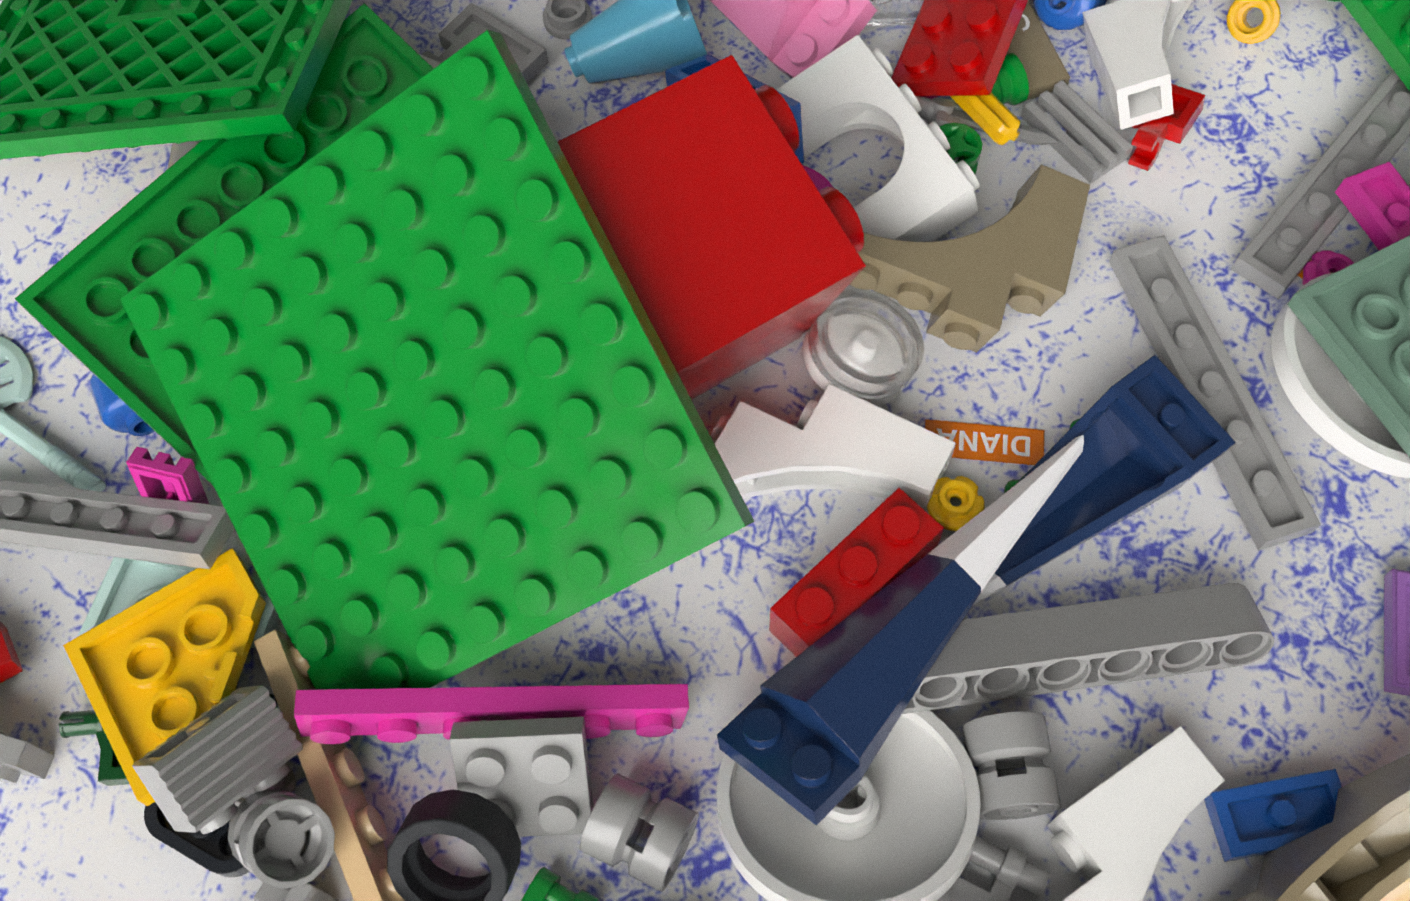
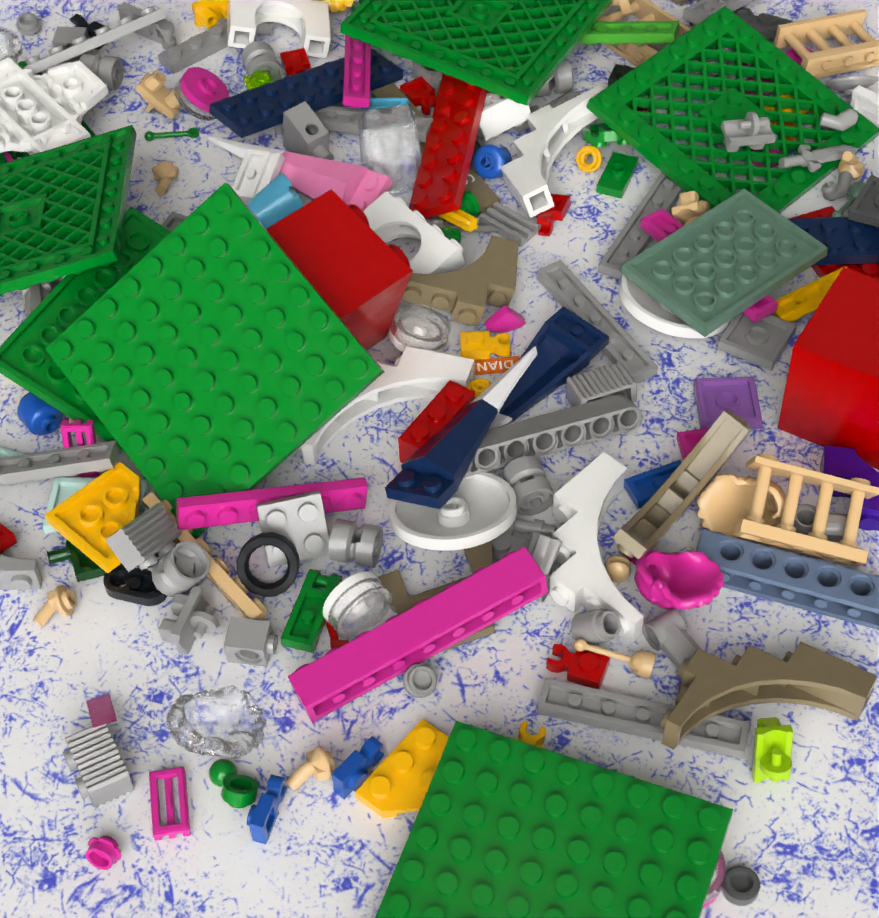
camera: 15 degrees left, 15 degrees down
(58, 840) = (59, 600): none -> tan plate
(971, 395) = (480, 345): none -> yellow plate
(1031, 350) = (504, 320): none -> dark pink tile
(1197, 551) = (600, 384): none -> light grey brick
(1301, 59) = (617, 175): none -> green plate
(1361, 718) = (688, 440): none -> dark pink tile

